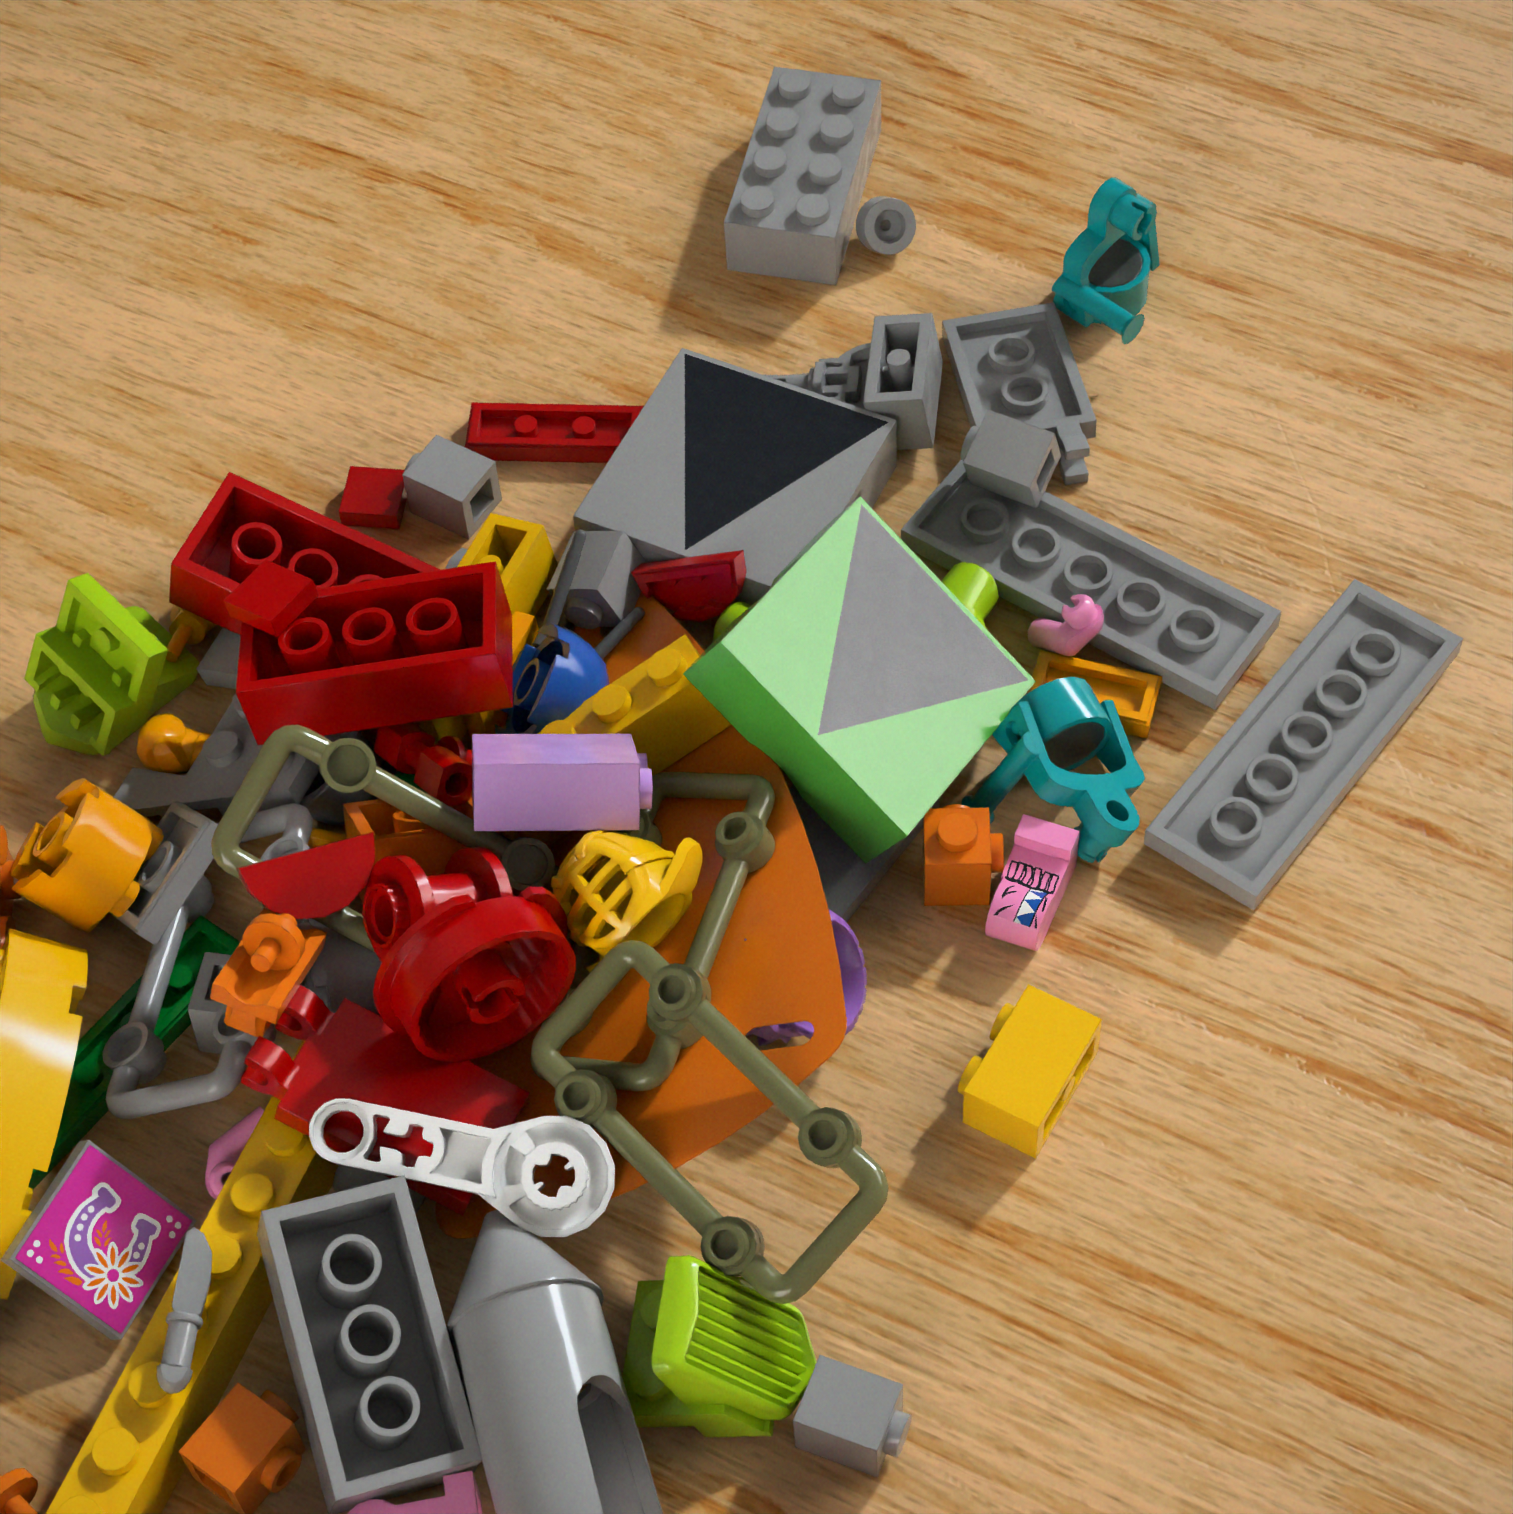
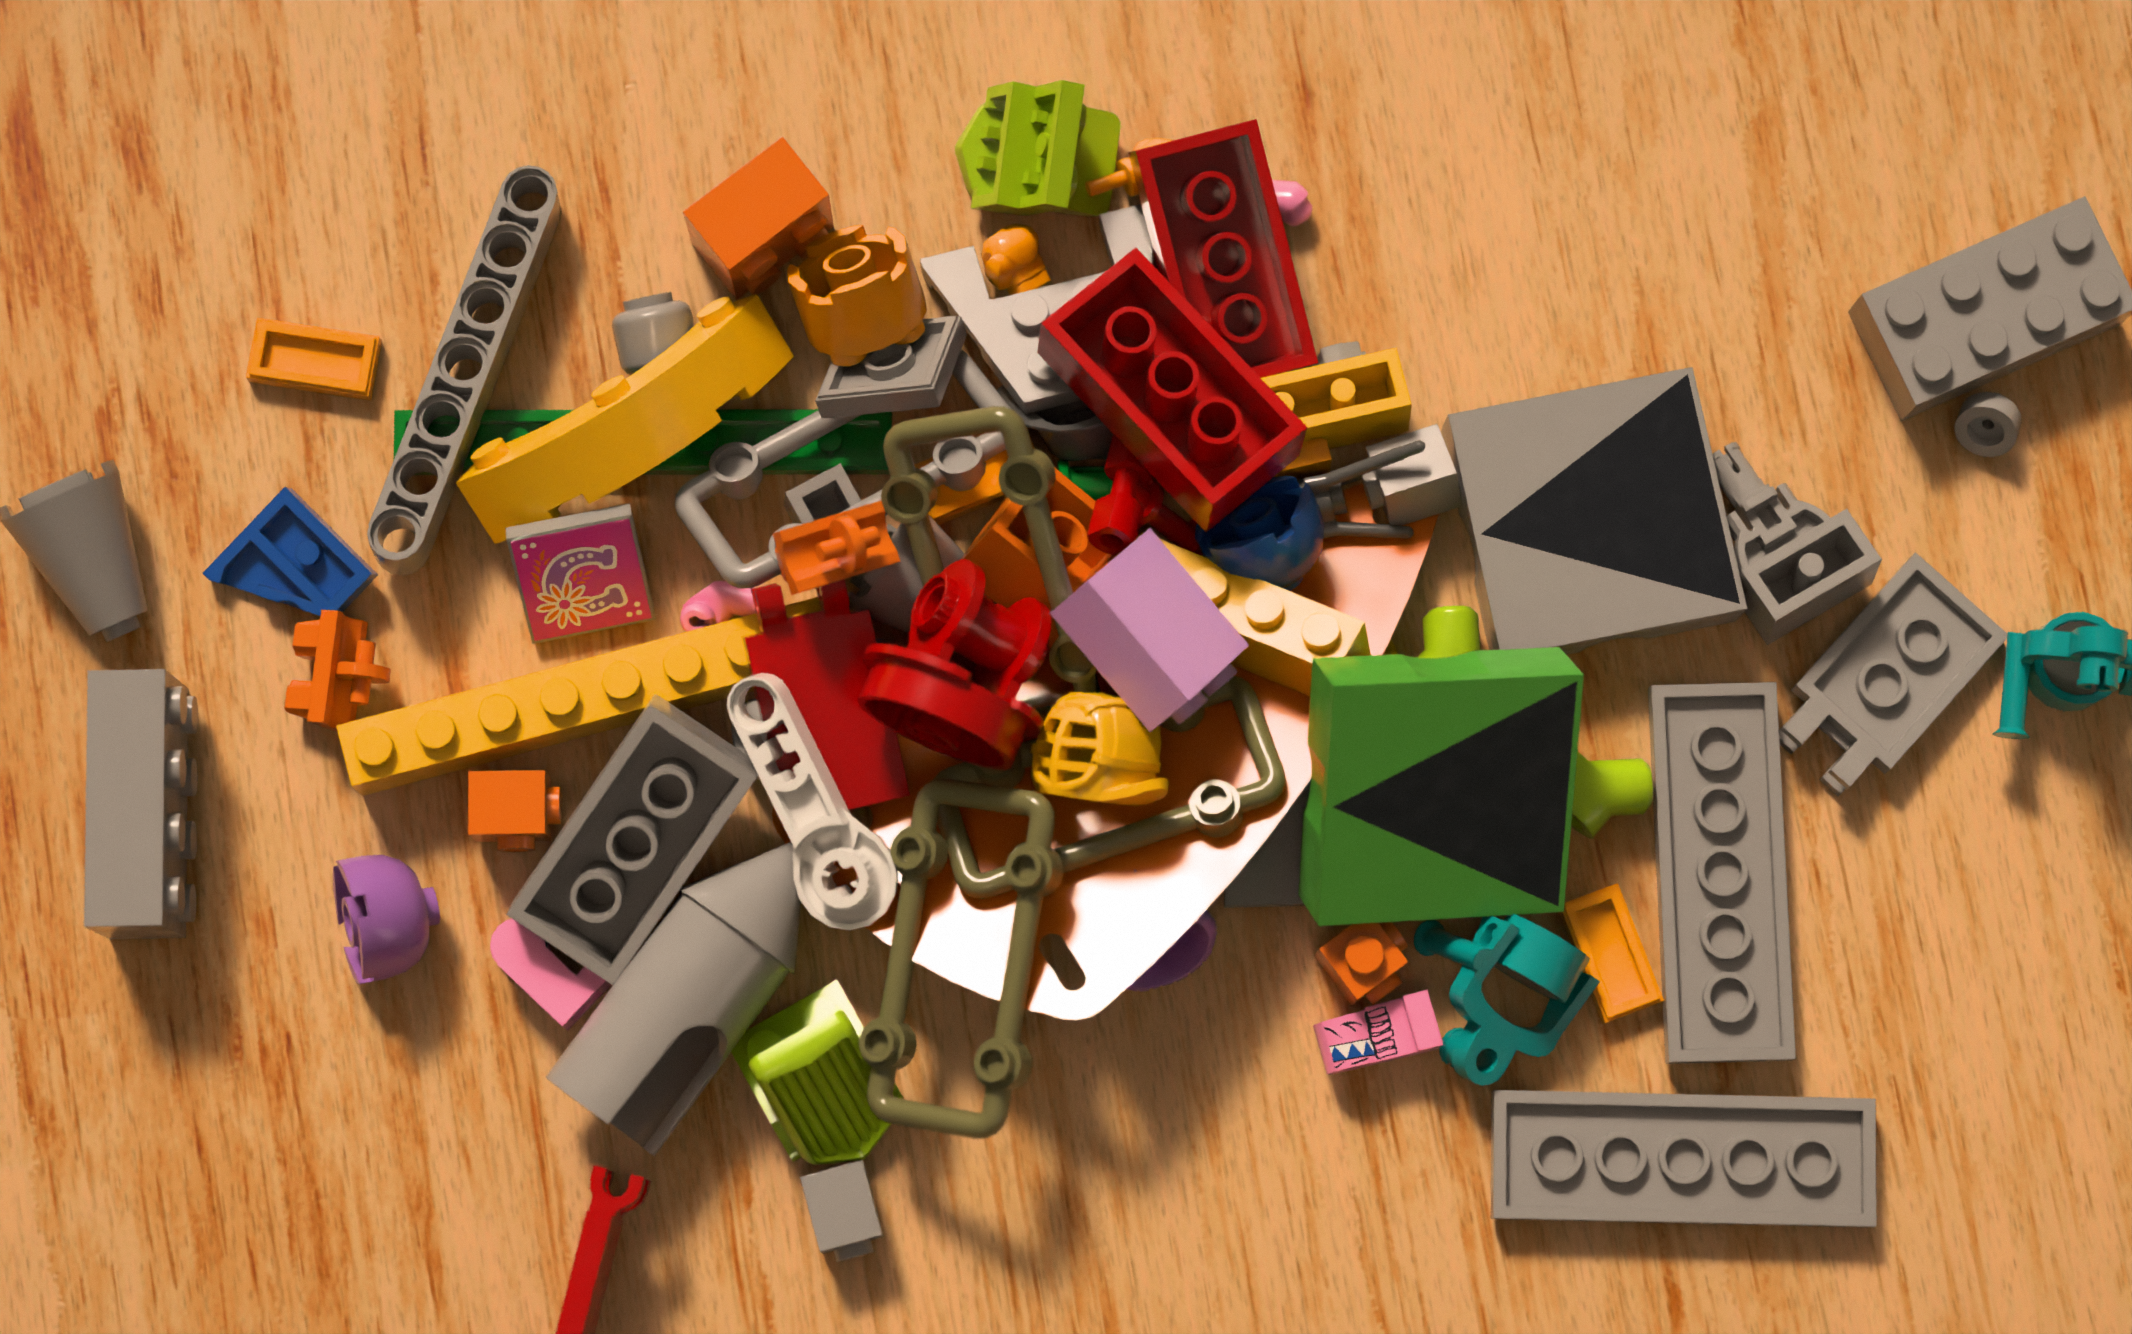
camera: 45 degrees right, 25 degrees up
(187, 1308) = (562, 697): light grey piece -> none
(271, 598) = (1145, 276): red tile -> none
(314, 879) = (925, 523): red tile -> none
(373, 498) = (1373, 212): red tile -> none
(452, 486) = (1423, 272): light grey brick -> none
(548, 431) = (1552, 306): red tile -> none
(694, 585) = (1460, 567): red tile -> none
(1010, 457) = (1773, 734): light grey brick -> none
(1029, 1070) = (1213, 1144): yellow brick -> none
(1068, 638) = (1641, 900): bright pink arm -> none

